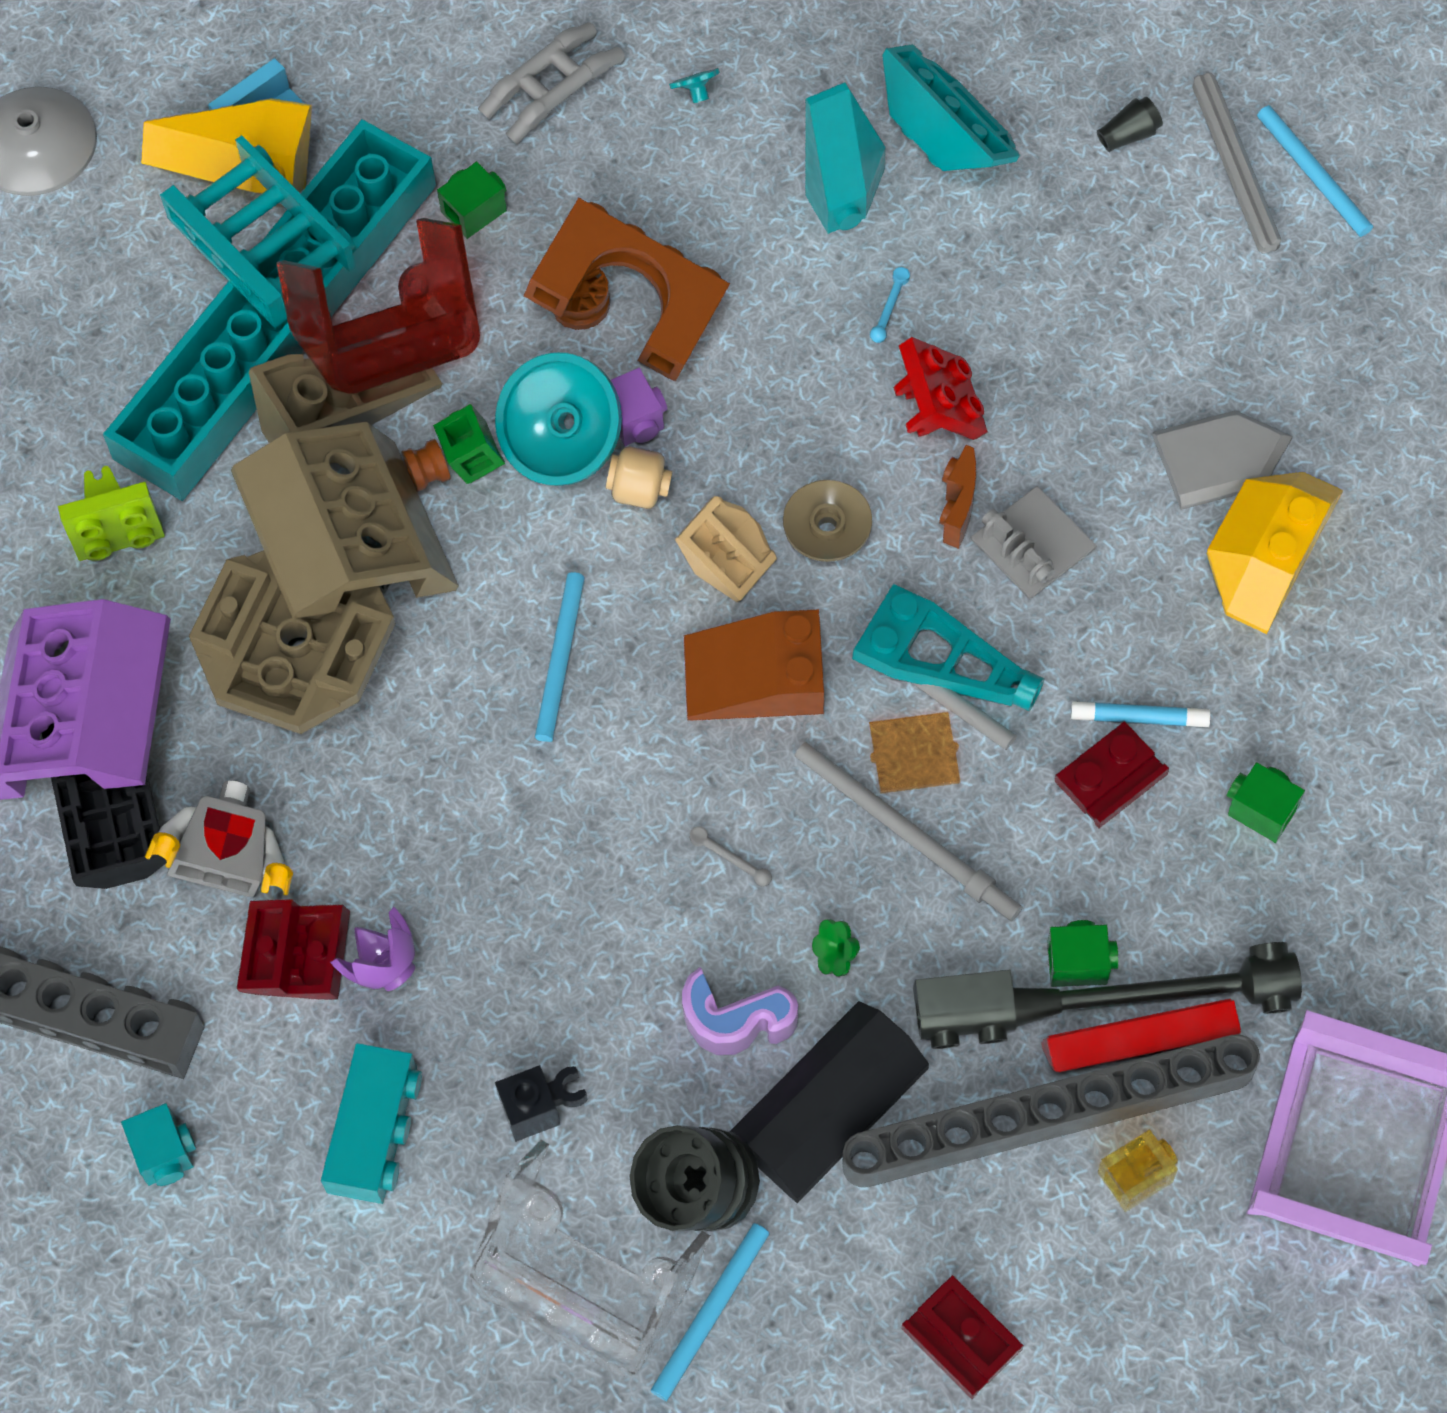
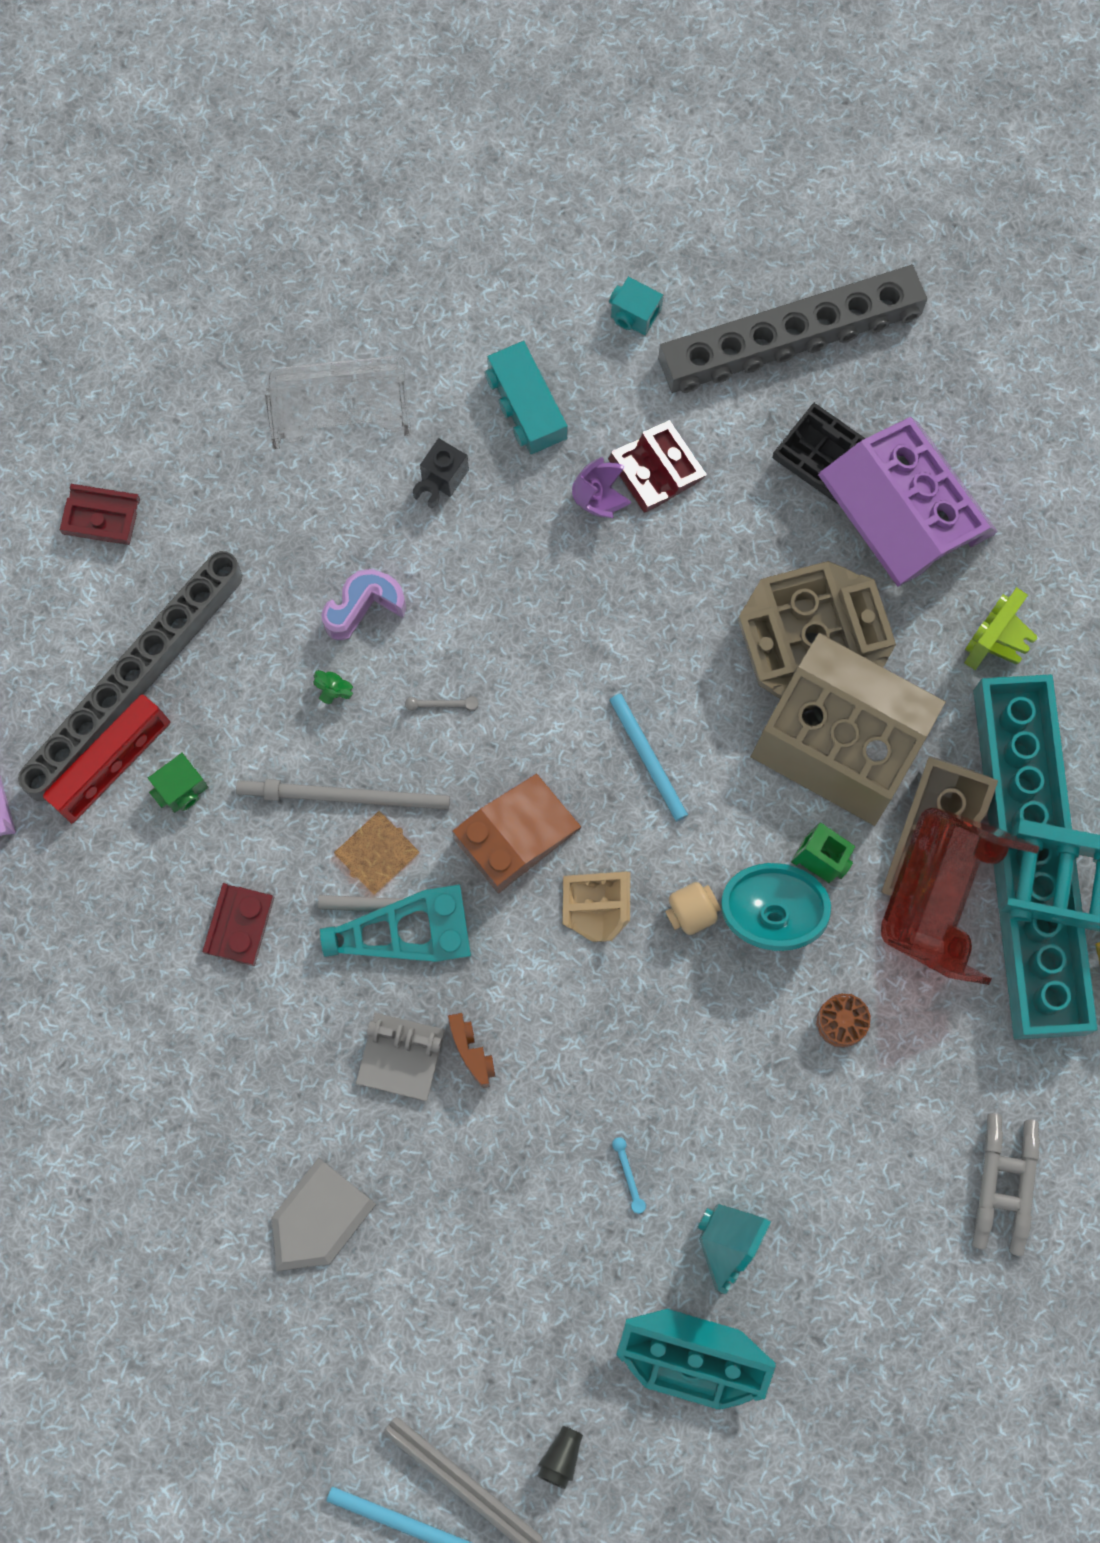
camera: 140 degrees right, 10 degrees up
(223, 845) = (746, 485): torso -> none
(426, 465) = (840, 817): dark orange wheel -> none
(472, 198) = (977, 1041): green brick -> none
(598, 240) = (860, 1047): dark orange arch -> none
(640, 407) = (736, 960): medium lavender brick -> none
(694, 1178) = (308, 479): pearl dark grey wheel -> none
(696, 84) = (903, 1258): teal plant -> none
(709, 1312) = (256, 436): medium azure bar -> none
(827, 503) = (545, 949): dark tan dish -> none
(829, 1097) = (273, 594): black piece -> none
(941, 390) = (536, 1117): red plate -> none
(991, 1006) = (212, 714): pearl dark grey bar -> none
(1138, 1169) = (56, 675): clear yellow brick -> none
(1140, 714) = (247, 981): medium azure bar -> none
(1264, 800) = (124, 969): green brick -> none
(1267, 543) = (238, 1173): yellow wedge -> none

